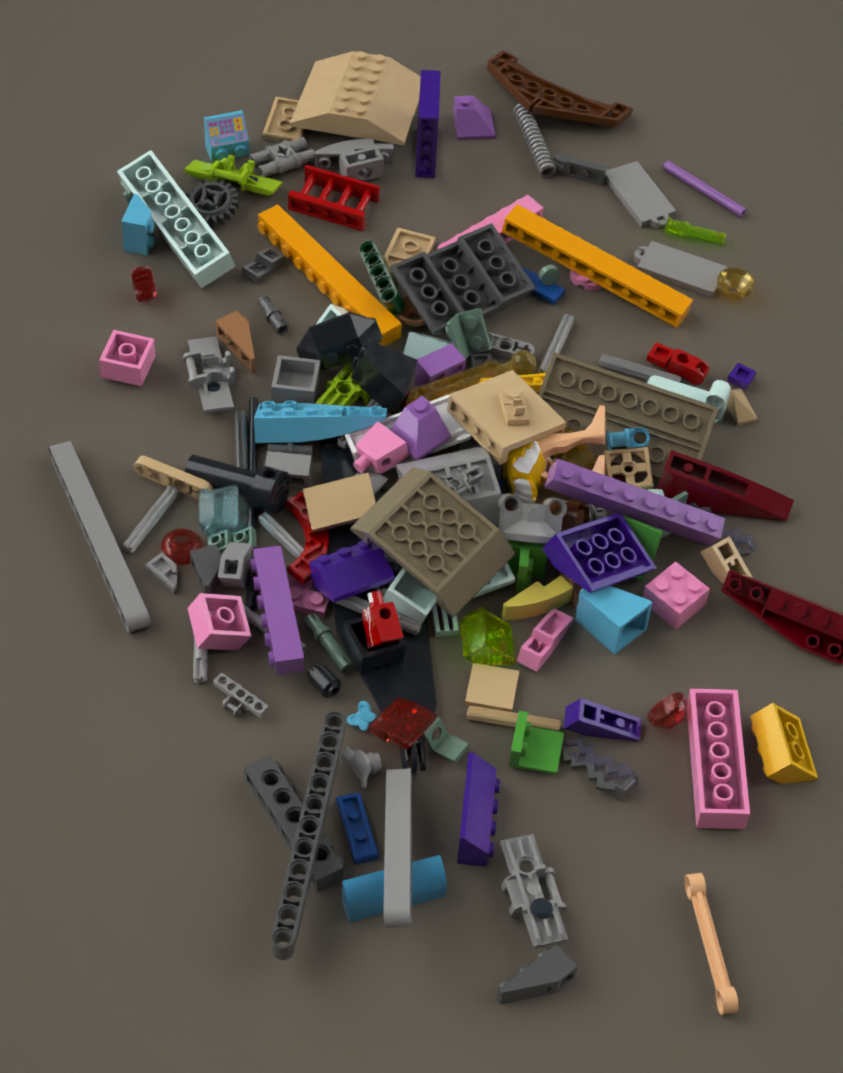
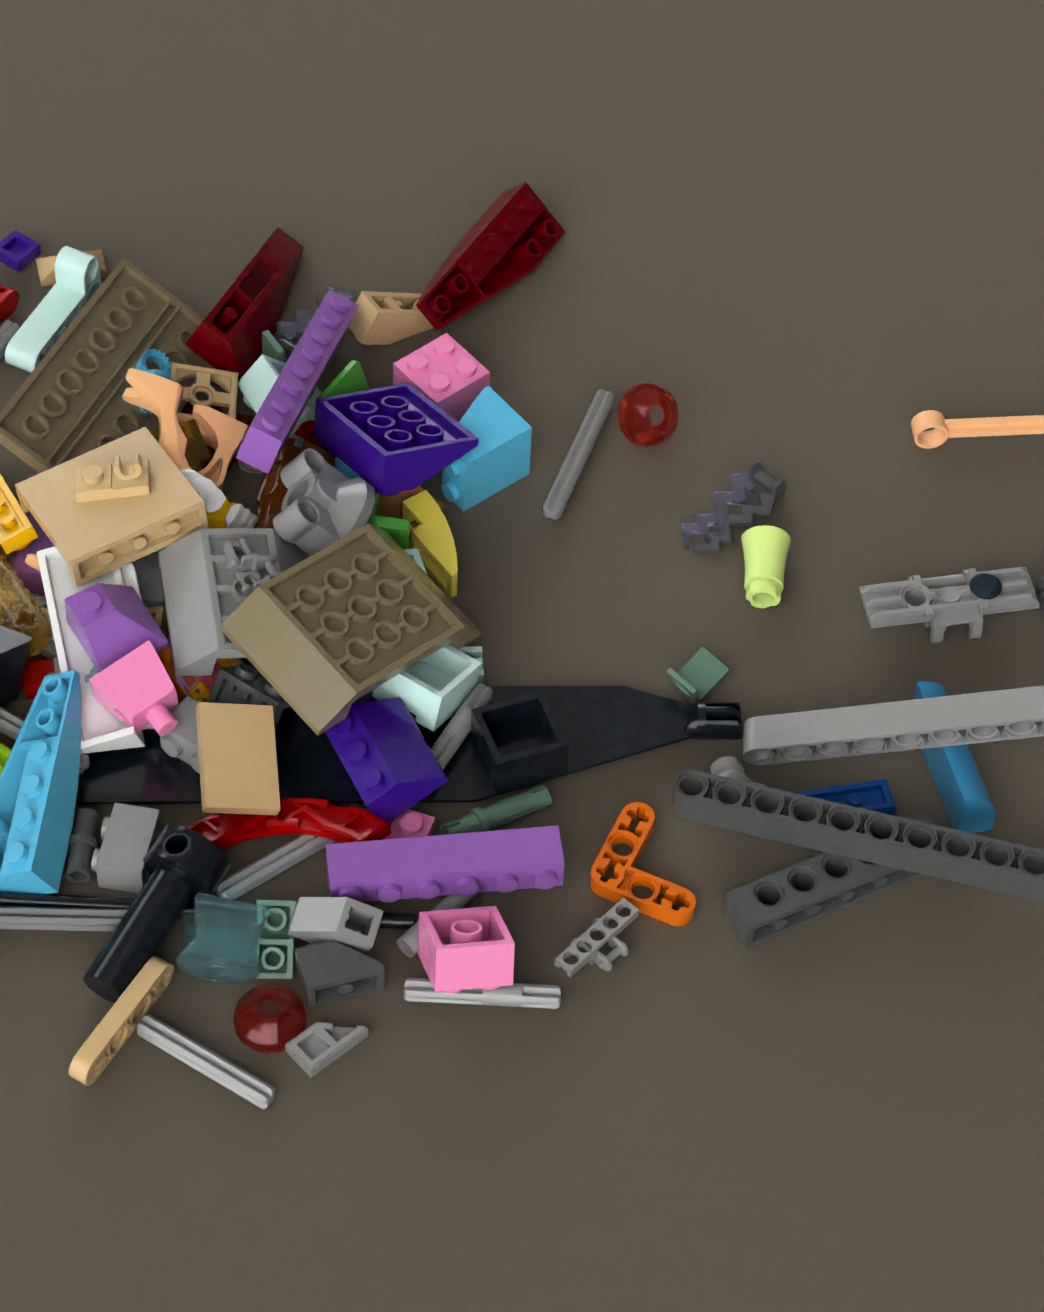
camera: 85 degrees left, 0 degrees up
(99, 537) = (231, 1141): light grey beam -> none
(290, 712) = (628, 877): none -> orange beam
(324, 680) = (575, 821): black brick -> none
(363, 716) = (641, 780): medium azure piece -> none
(381, 622) = (514, 707): red torso -> none
(402, 722) = (668, 720): clear red slope -> none
(477, 812) = (821, 653): dark purple slope -> none
(487, 639) = (507, 613): clear neon green slope -> none
(492, 687) = (589, 619): tan tile -> none
(509, 718) = (648, 599): tan axle -> none
(535, 747) = (700, 577): bright green bracket -> none
(544, 639) = (507, 544): bright pink slope -> none
(546, 781) = (764, 564): none -> yellowish green plant
(601, 721) = (661, 497): dark purple slope -> none
(631, 677) = (578, 454): none -> light grey axle
(717, 759) = (737, 371): bright pink brick -> none
(782, 745) = (706, 310): yellow slope -> none

